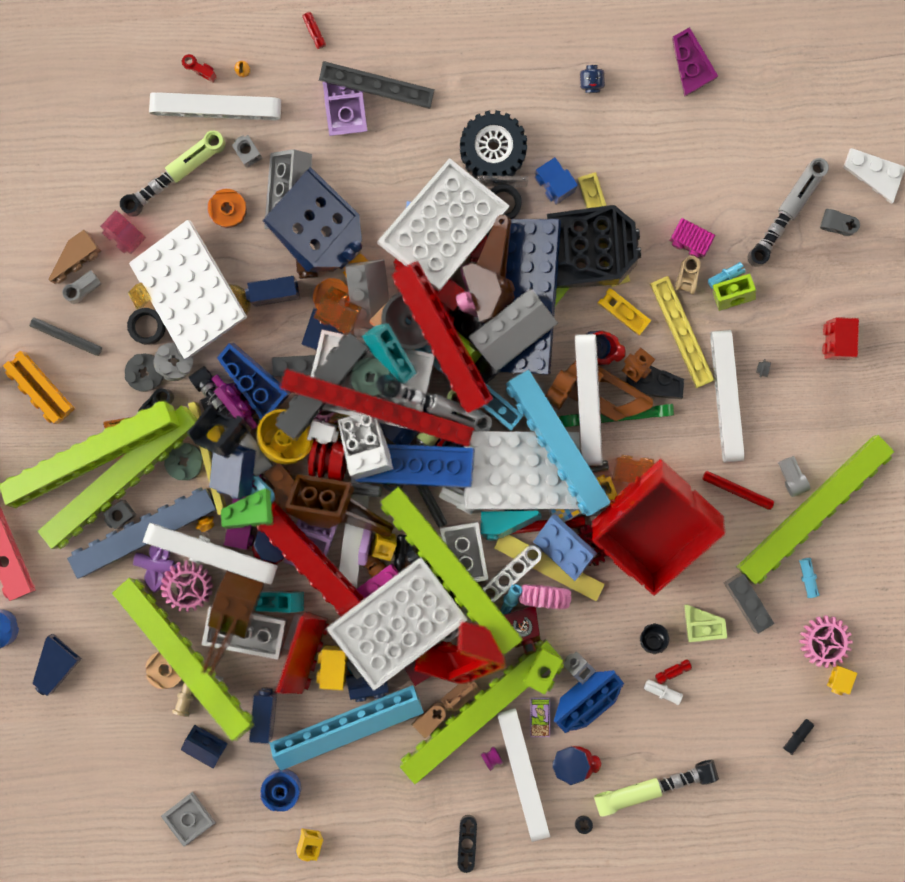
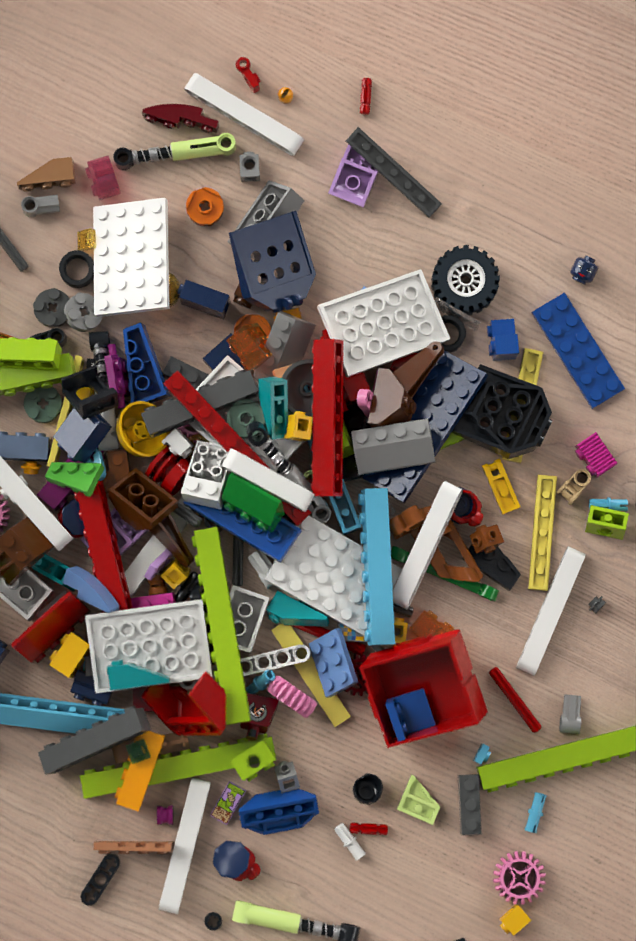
camera: 25 degrees right, 5 degrees down
(153, 141) = (173, 114): none -> dark red slope
(318, 603) = (90, 589): none -> medium blue slope
(396, 659) = (128, 675): none -> teal slope
(396, 731) = (94, 740): none -> dark grey brick
(418, 449) = (252, 503): none -> green slope
(420, 421) = (268, 480): none -> white beam
(421, 359) = (299, 427): none -> yellow brick
(439, 720) = (138, 751): none -> clear green brick
(450, 734) = (138, 775): none -> light orange brick
(480, 800) = (142, 847): none -> nougat wing
(625, 154) = (578, 350): none -> blue plate
(656, 554) = (410, 713): none -> blue bracket
(736, 553) = (482, 754): none -> medium azure plate

